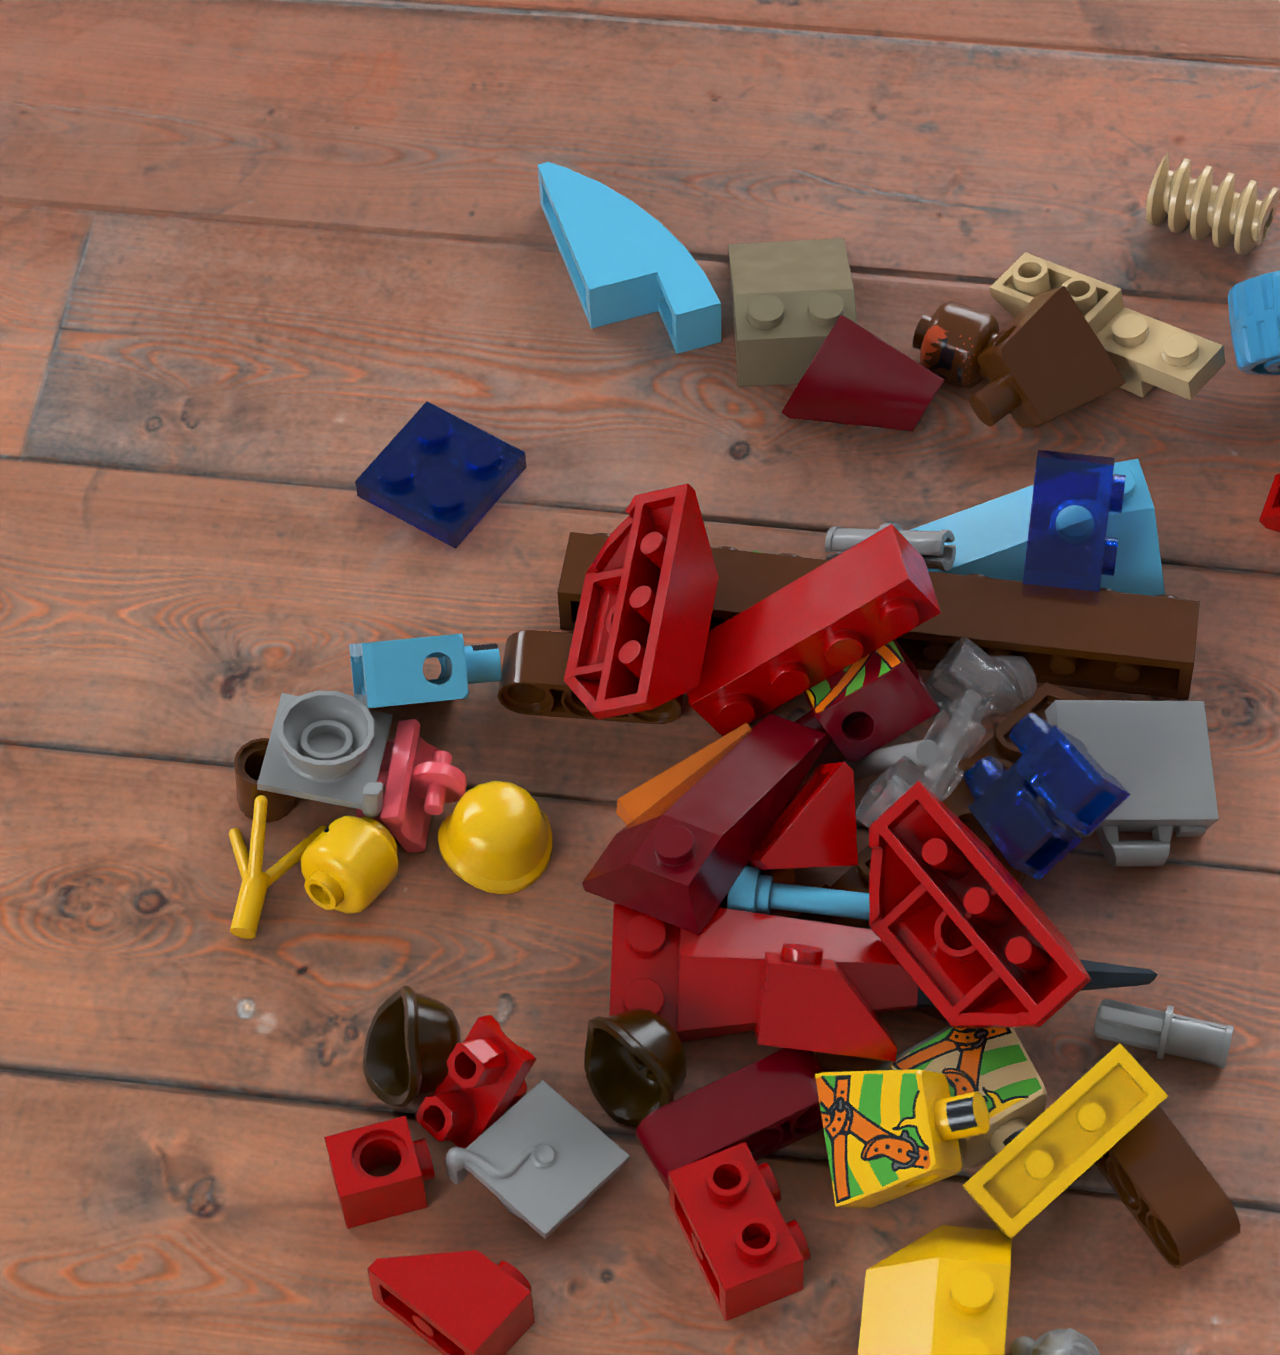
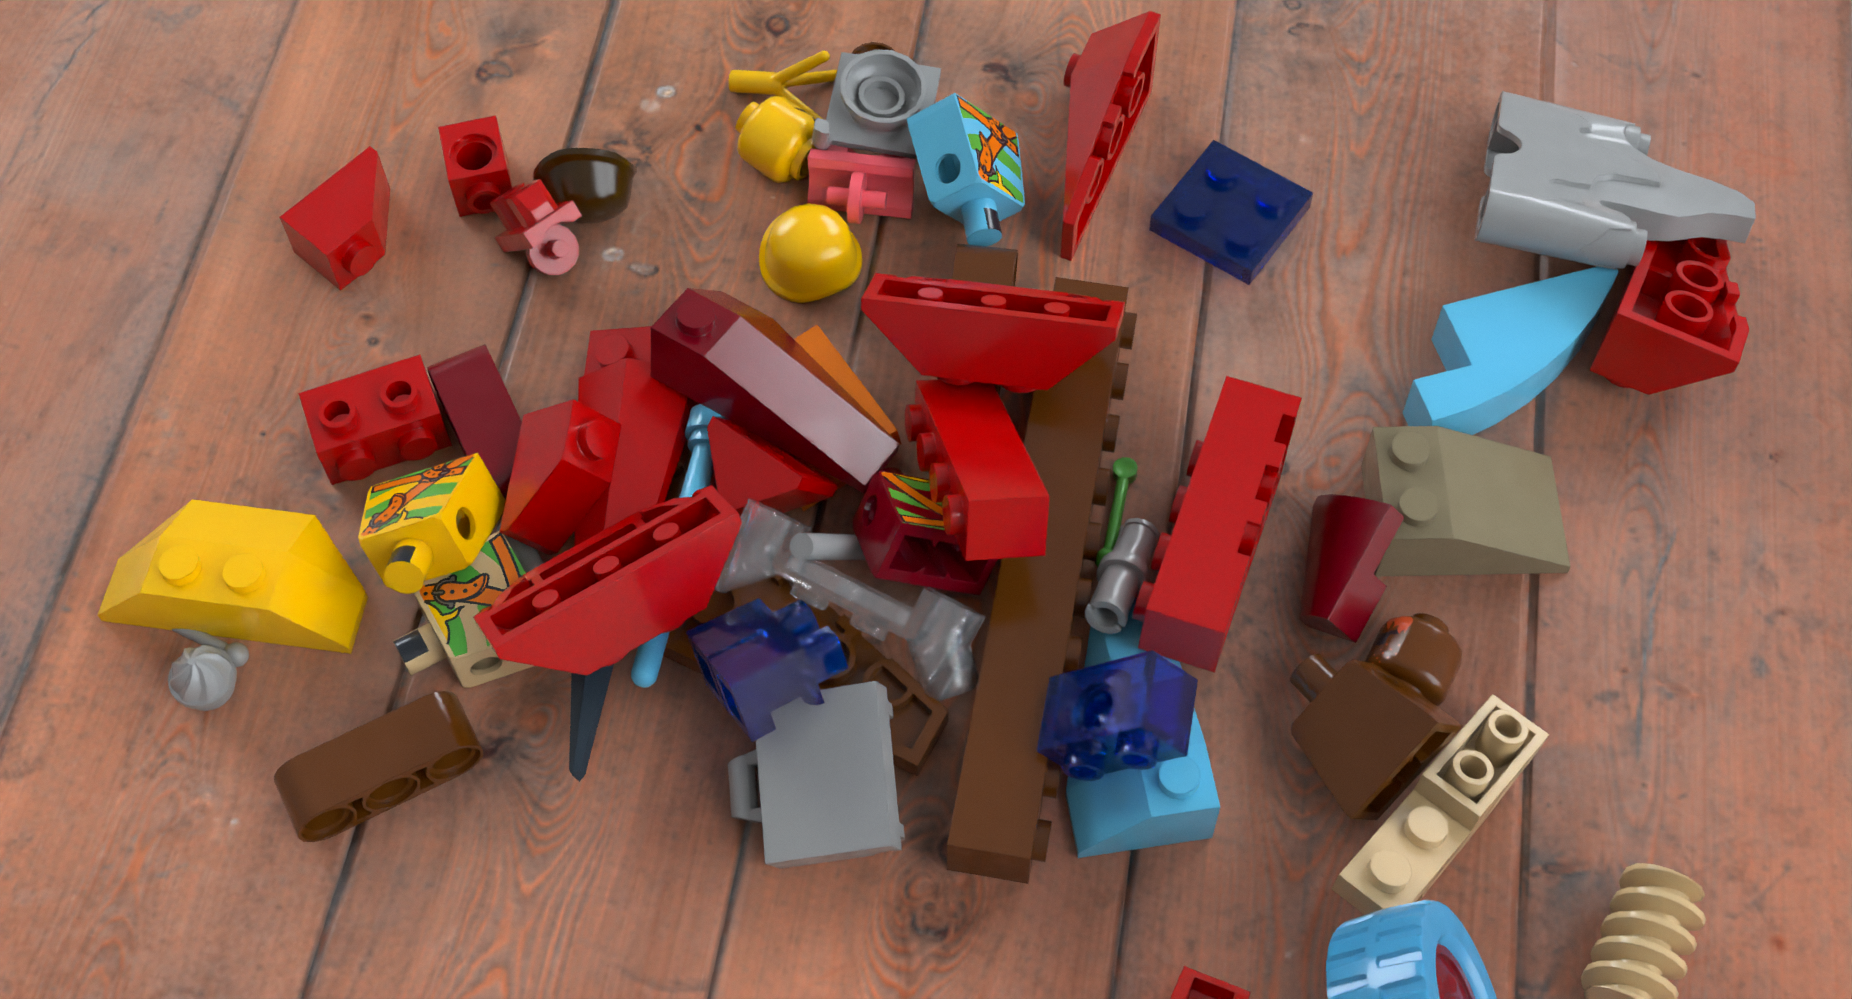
camera: 90 degrees right, 5 degrees up
(320, 565) = (1106, 100): none -> red wedge
(443, 186) = (1588, 190): none -> light grey rock
(540, 1159) = (468, 278): light grey hat -> none
(601, 132) = (1674, 319): none -> red wedge
(633, 1064) = (544, 338): dark brown helmet -> none
(846, 460) = (1216, 525): none -> red wedge
(1064, 1141) = (385, 665): yellow plate -> none
(1163, 1032) = (531, 797): light grey axle -> none

